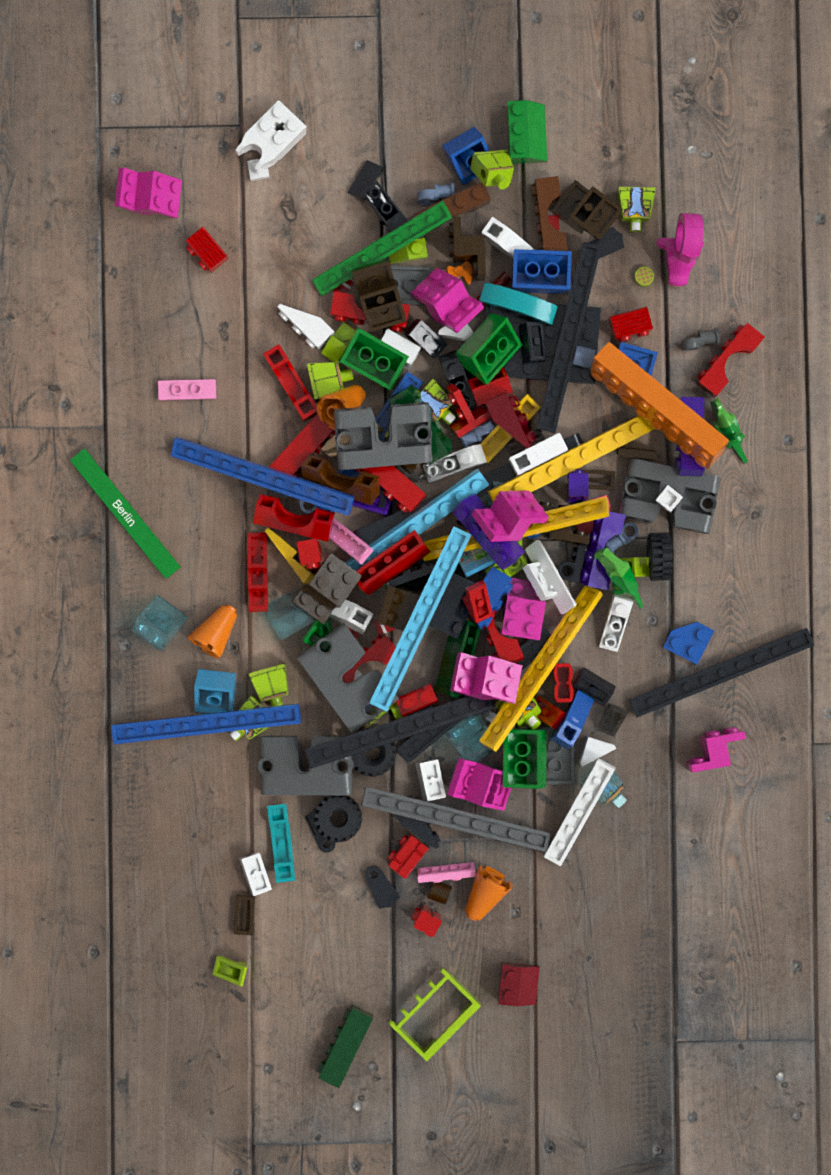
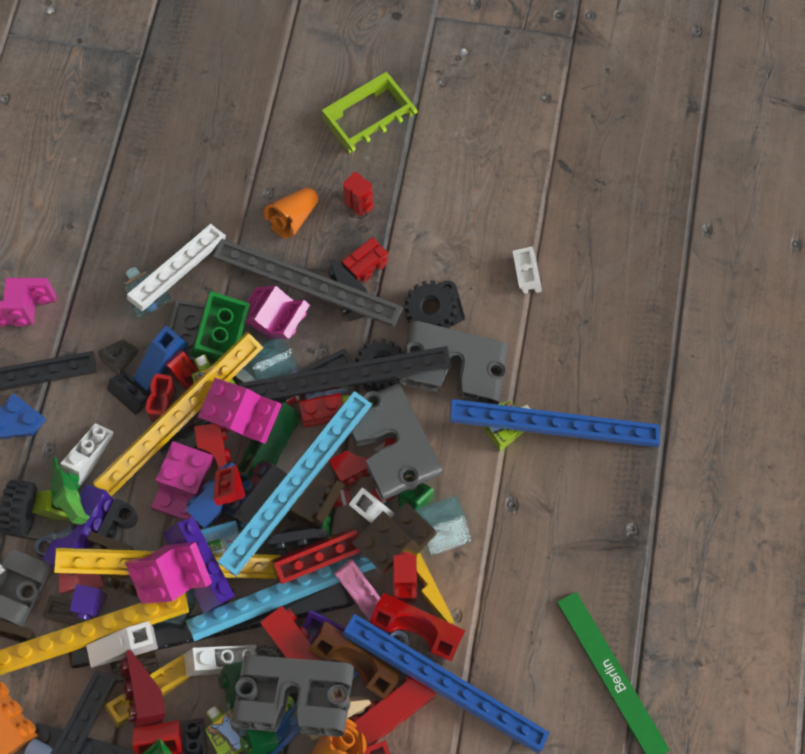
camera: 165 degrees left, 20 degrees down
(159, 623) = (590, 543): clear light blue slope -> none
(214, 691) = (539, 459): dark azure slope -> none
(215, 631) = (528, 521): orange cone -> none
(230, 970) = (567, 184): lime slope -> none
(244, 918) = (541, 251): dark brown tile -> none
(257, 572) = (470, 579): red slope -> none
(271, 684) = (477, 455): lime torso -> none
(281, 843) = (494, 294): teal slope -> none
(345, 1046) = (464, 100): dark green brick -> none
(381, 888) = (399, 237): black piece -> none
(430, 780) = (325, 328): white hinge -> none
(439, 892) = (339, 222): dark brown brick -> none
(446, 872) = (329, 238): bright pink plate -> none
(467, 419) = (193, 707): red bracket -> none
(475, 434) = (186, 691): sand blue connector -> none
(518, 984) = (282, 126): dark red slope -> none
(546, 578) = (149, 508): white bracket -> none
(594, 749) = (145, 327): white slope -> none

